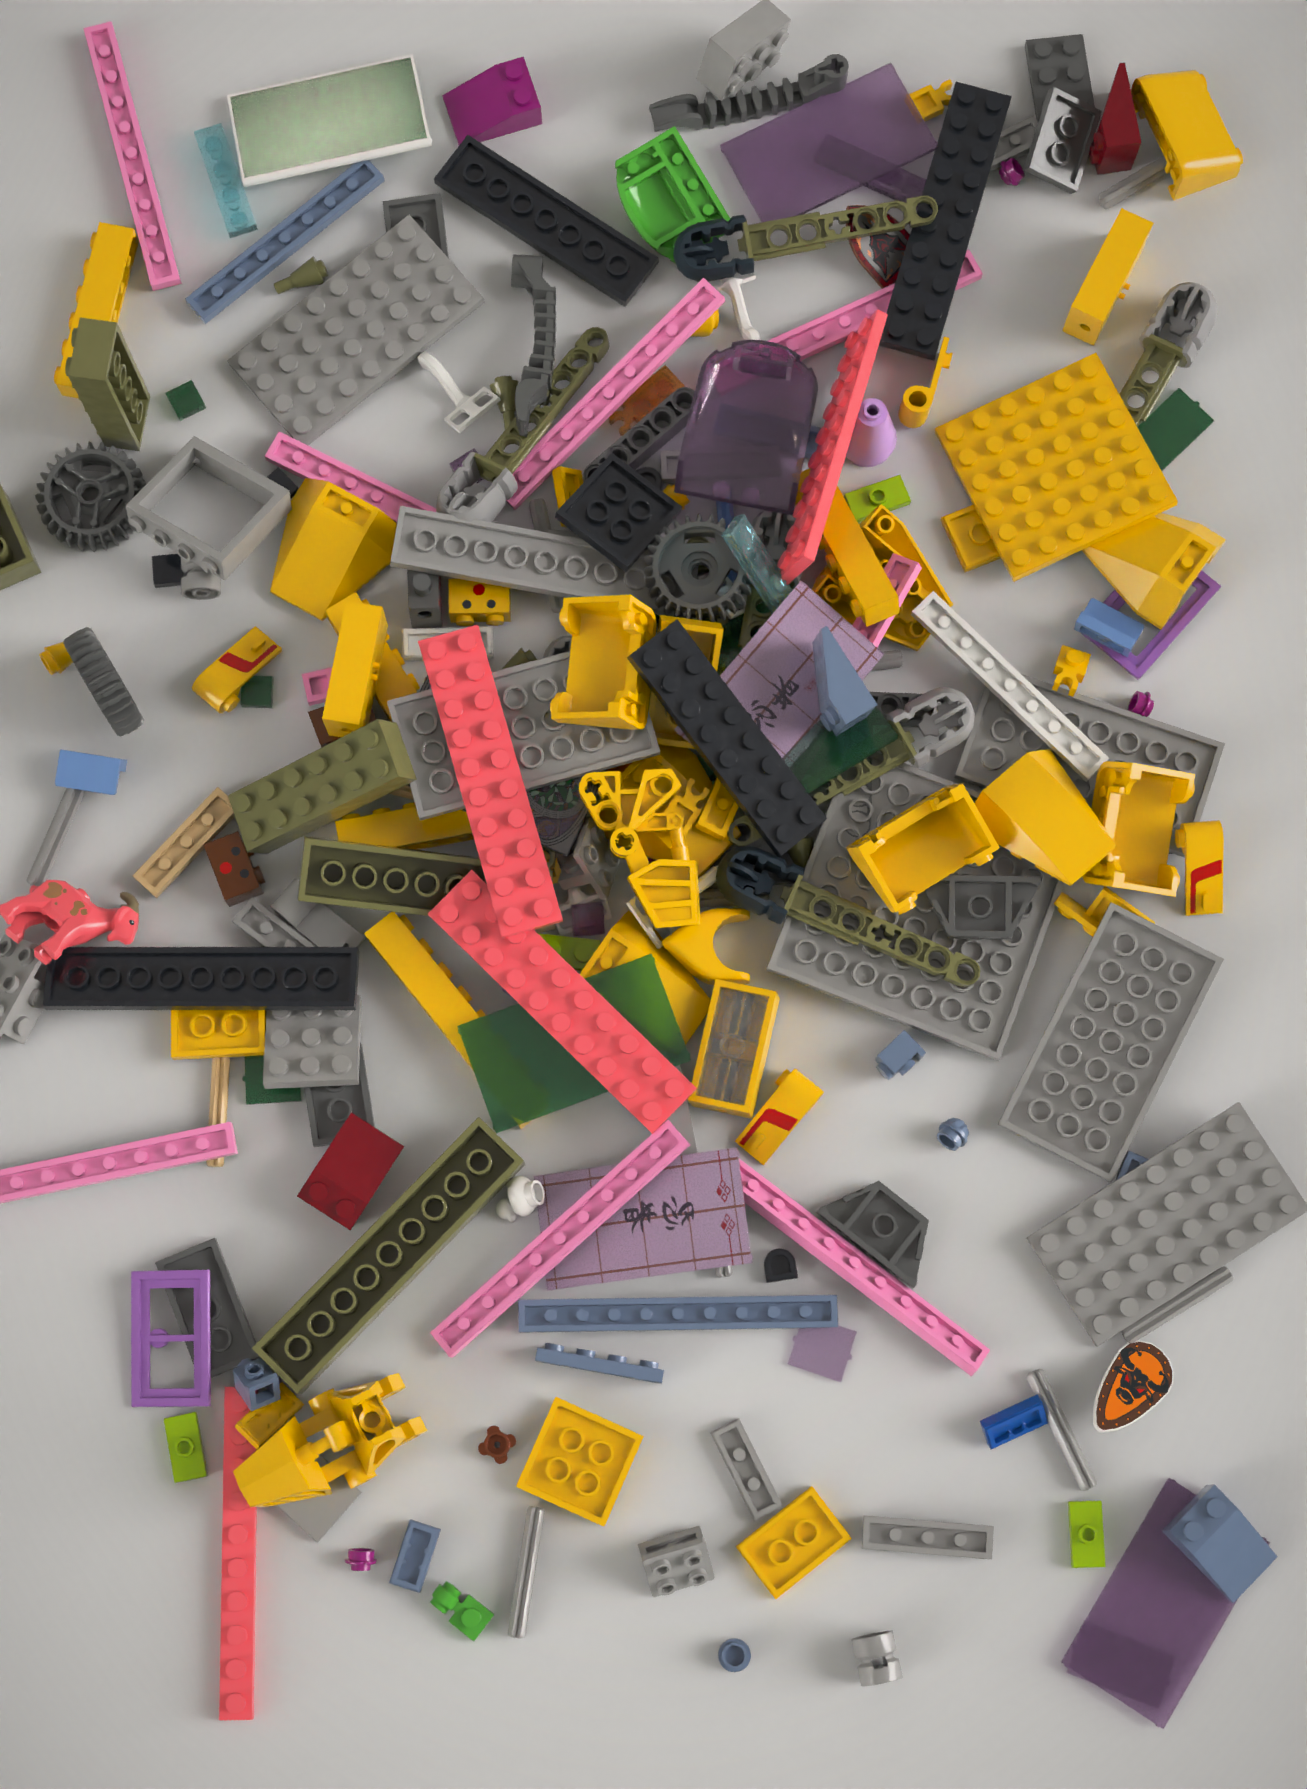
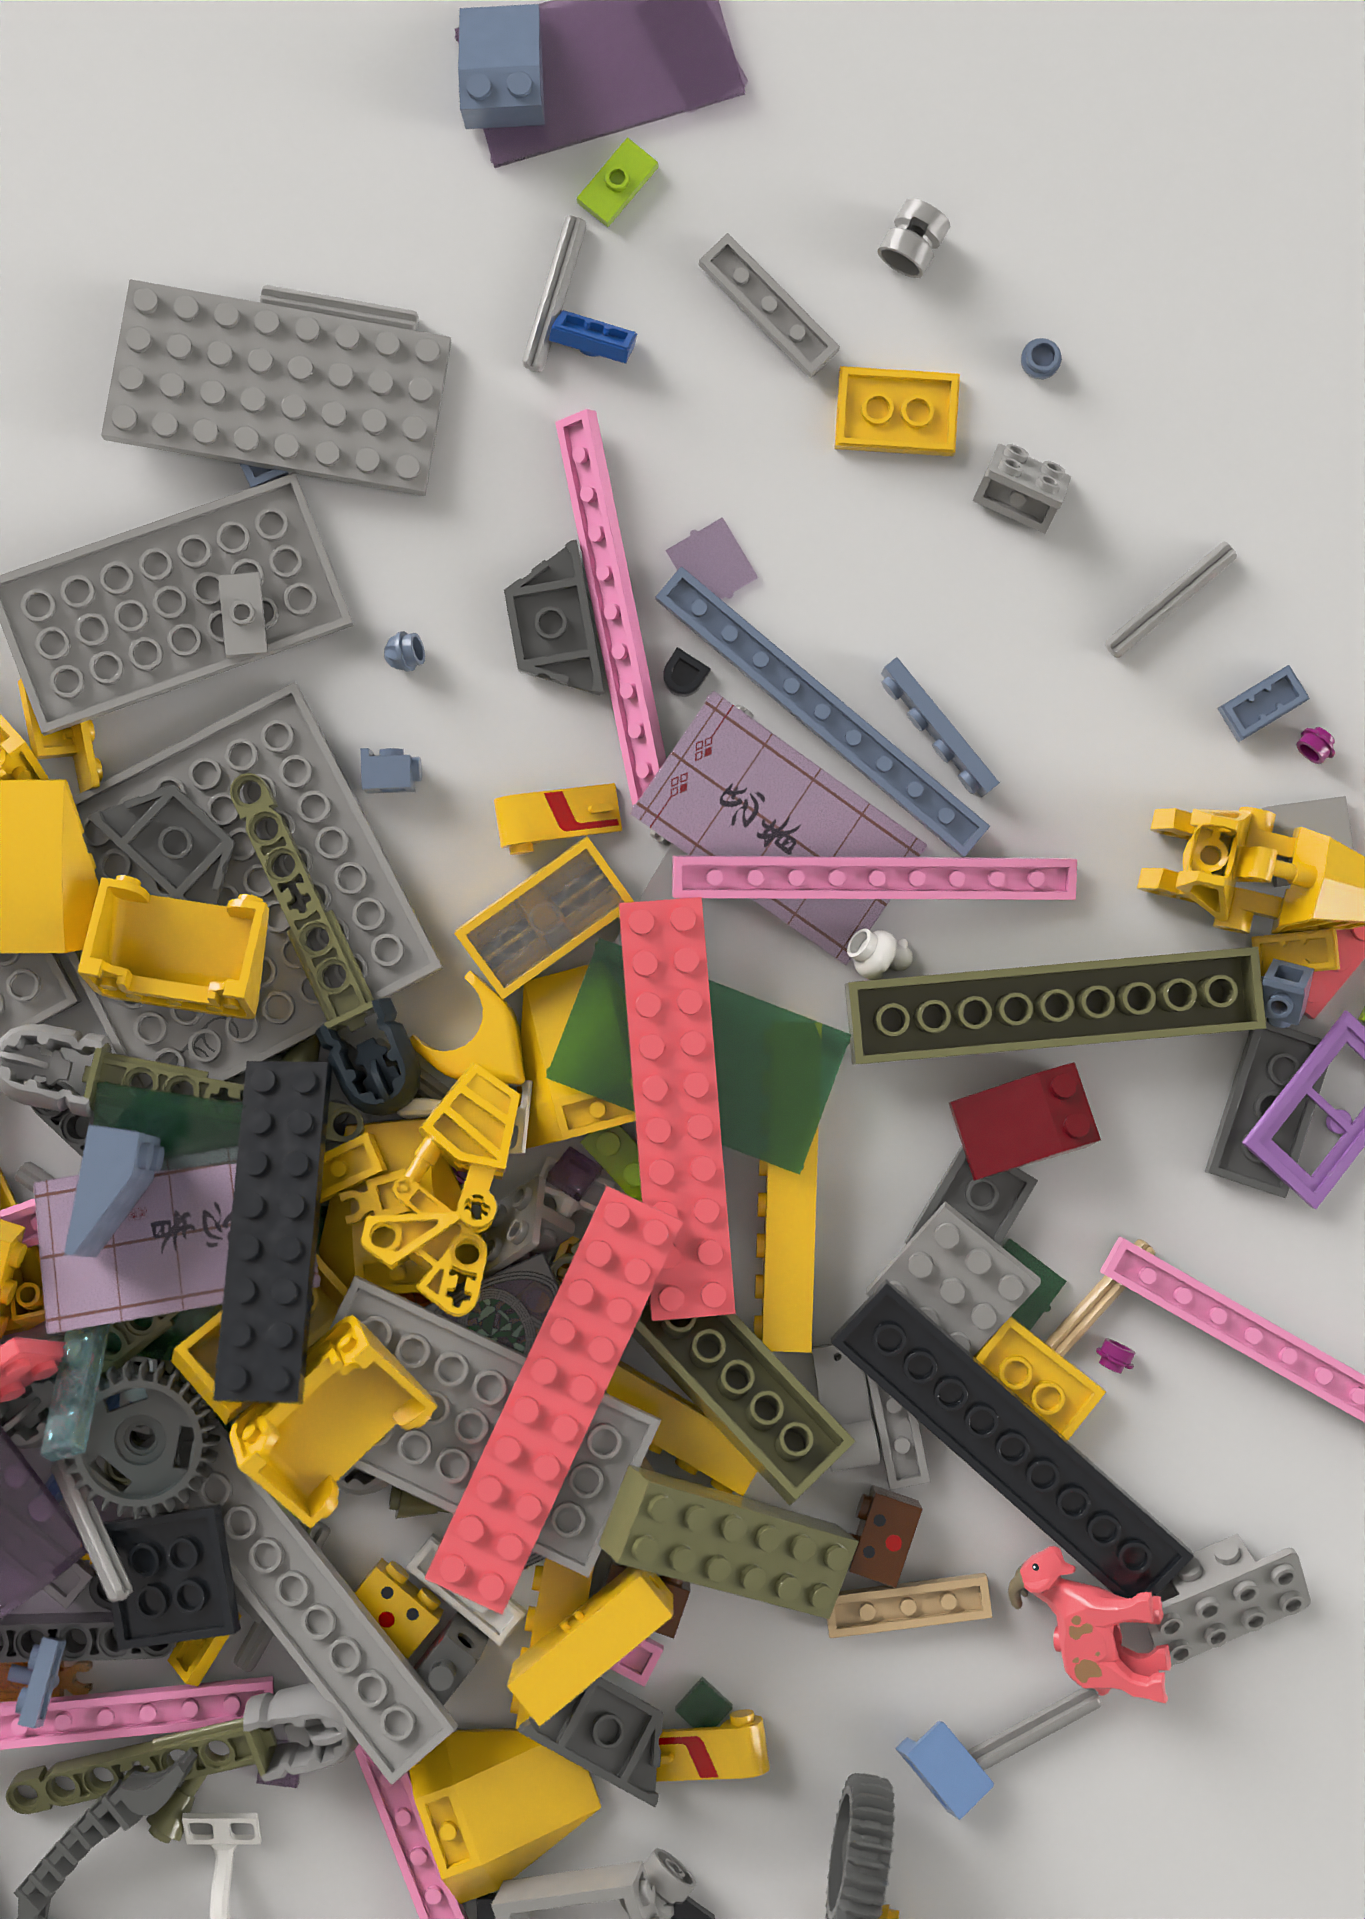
camera: 145 degrees left, 10 degrees up
(181, 1084) = (1115, 1356): none -> magenta plate
(300, 630) = (608, 1736): none -> dark grey wing
(469, 1615) = (1257, 606): bright green plate -> none
(488, 1448) = (1103, 729): copper plate -> none
(579, 1461) = (1034, 655): yellow plate -> none
(641, 405) = (41, 1678): none -> sand blue plate
(679, 499) = (93, 1533): none -> light grey axle
(746, 1469) = (882, 515): light grey tile -> none
(1062, 1069) = (243, 615): none -> light grey plate
(1131, 1386) = (453, 270): shield -> none

